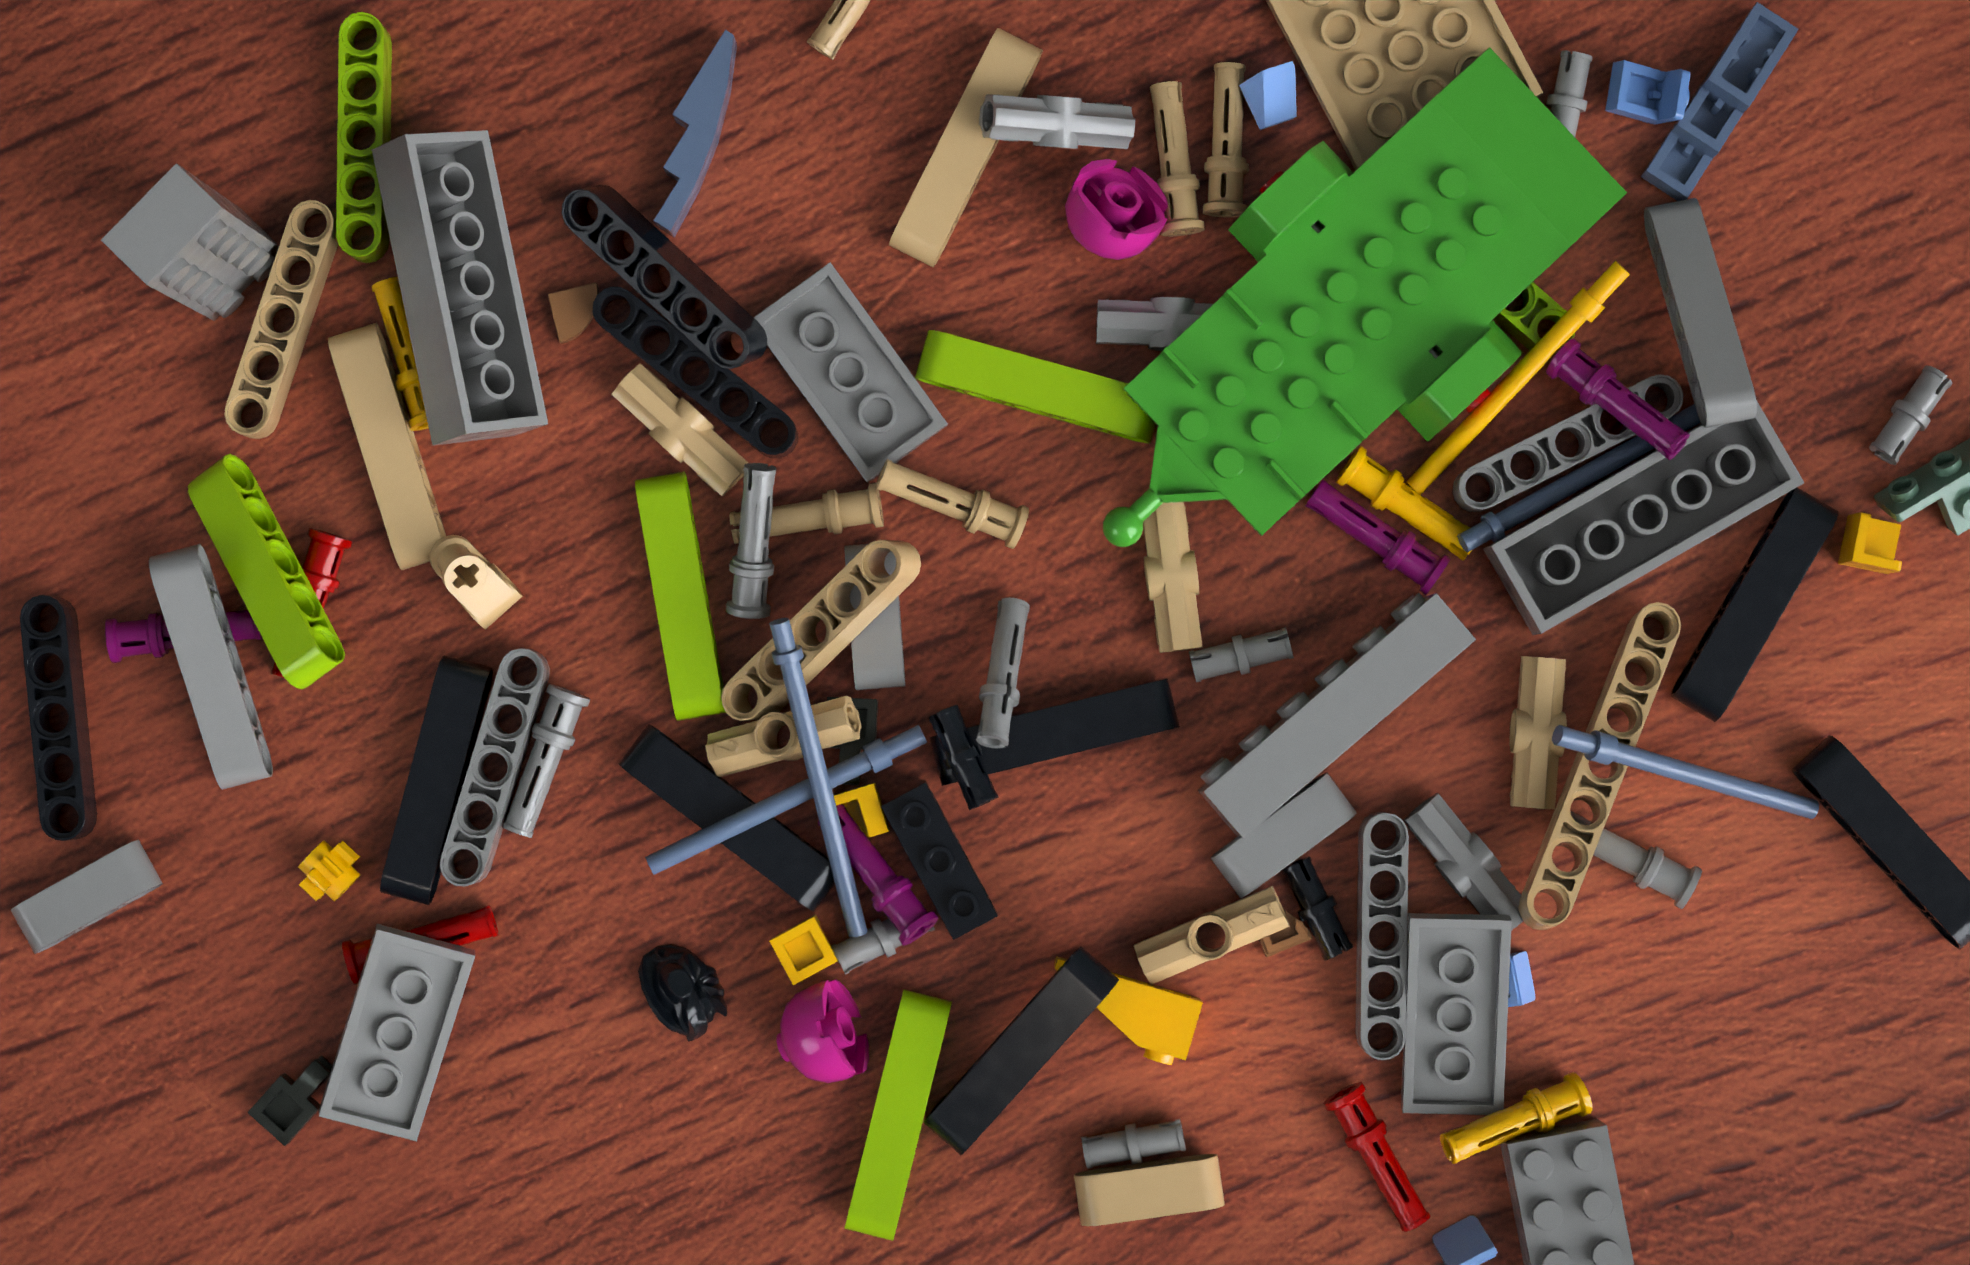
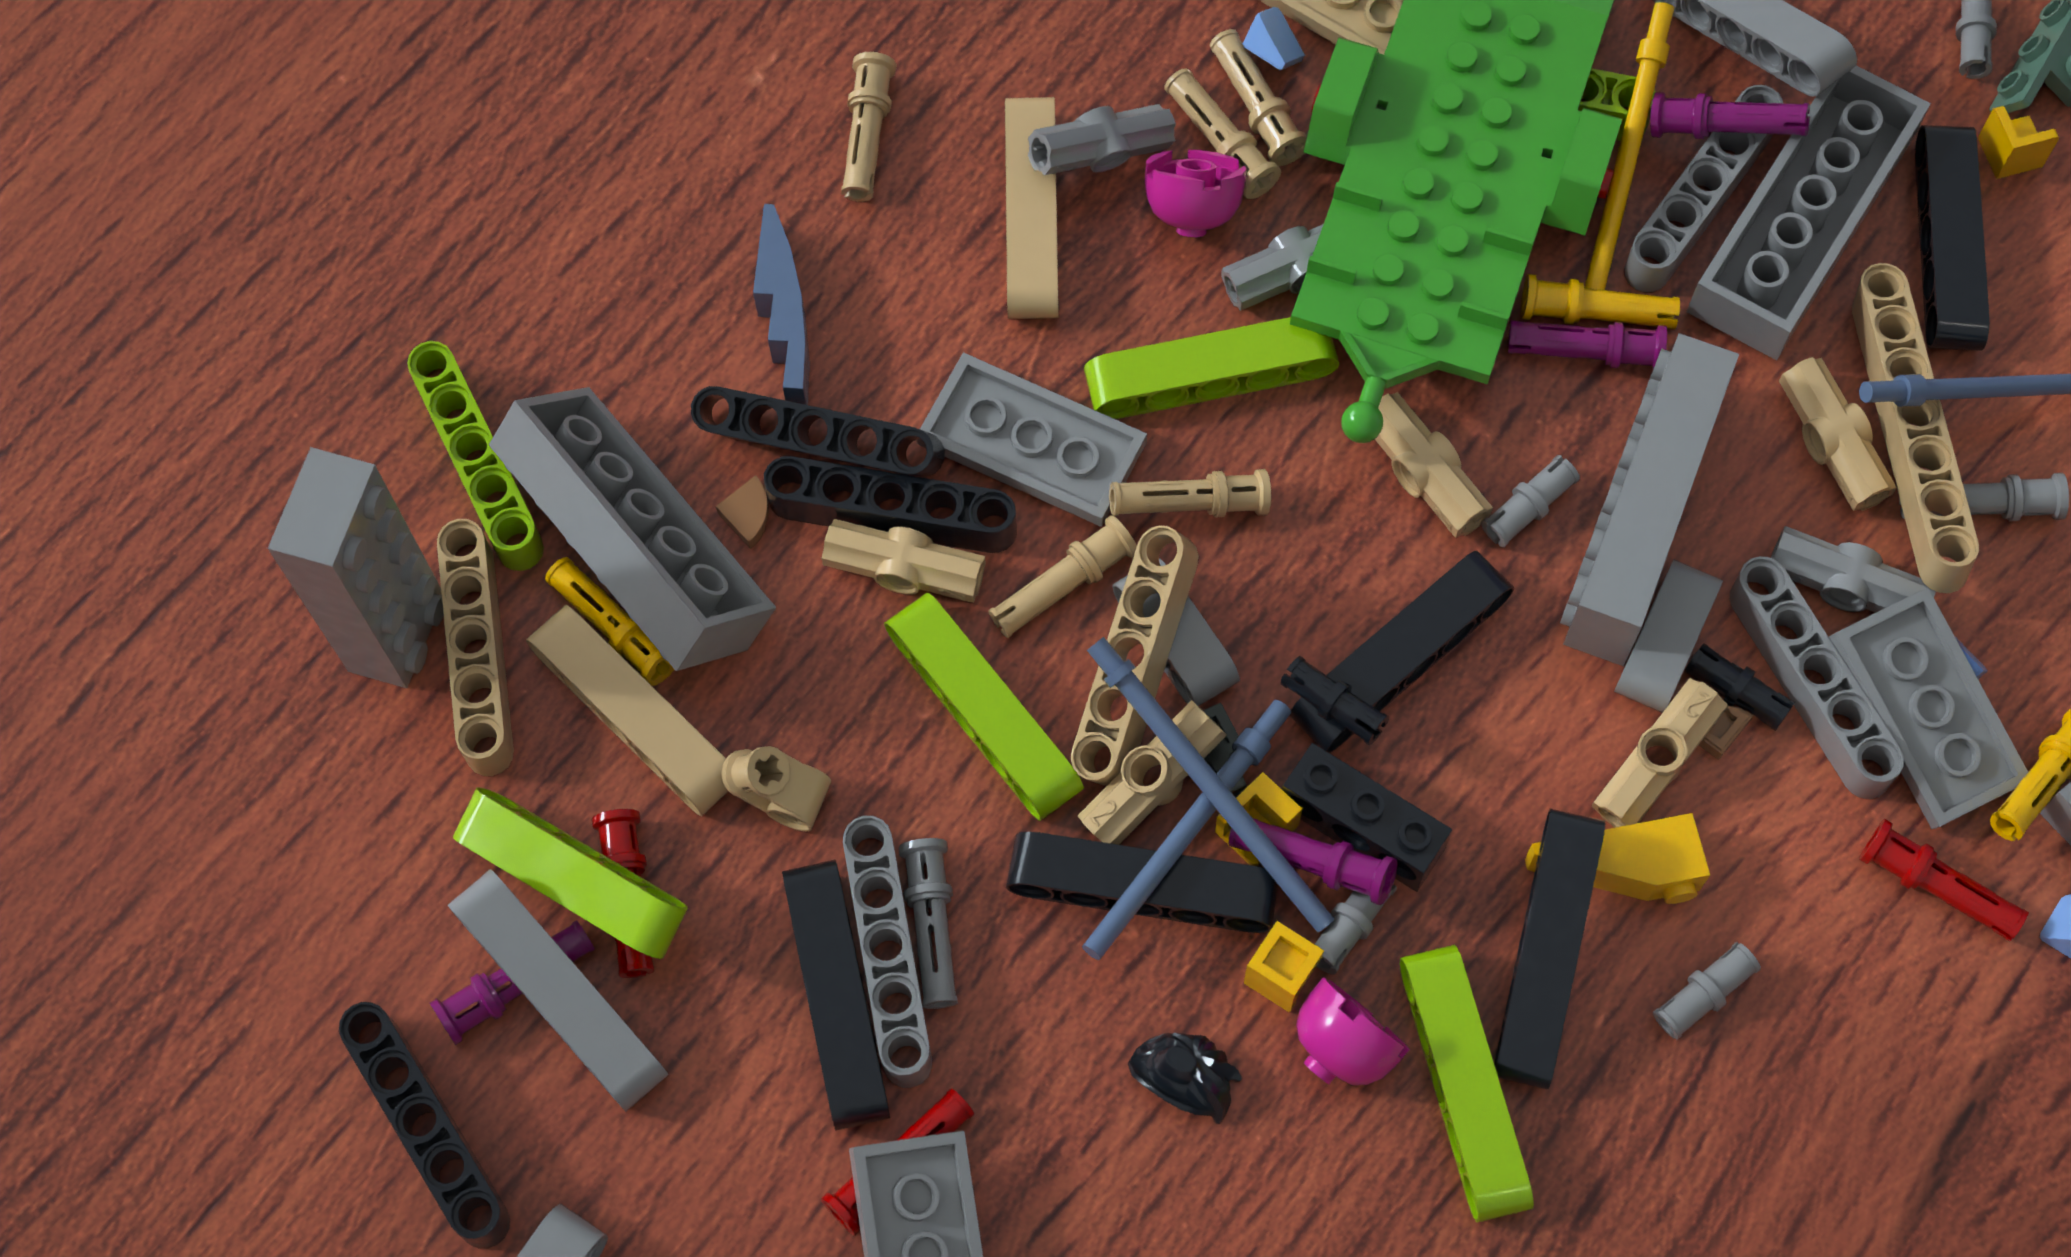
camera: 25 degrees left, 20 degrees down
(329, 870) = (772, 1133): yellow gear -> none
(751, 564) = (1035, 640): light grey pin -> none
(1000, 691) = (1333, 630): light grey pin -> none
(1149, 1190) = (1749, 1026): tan beam -> none
(1494, 525) = (1687, 275): sand blue bar -> none

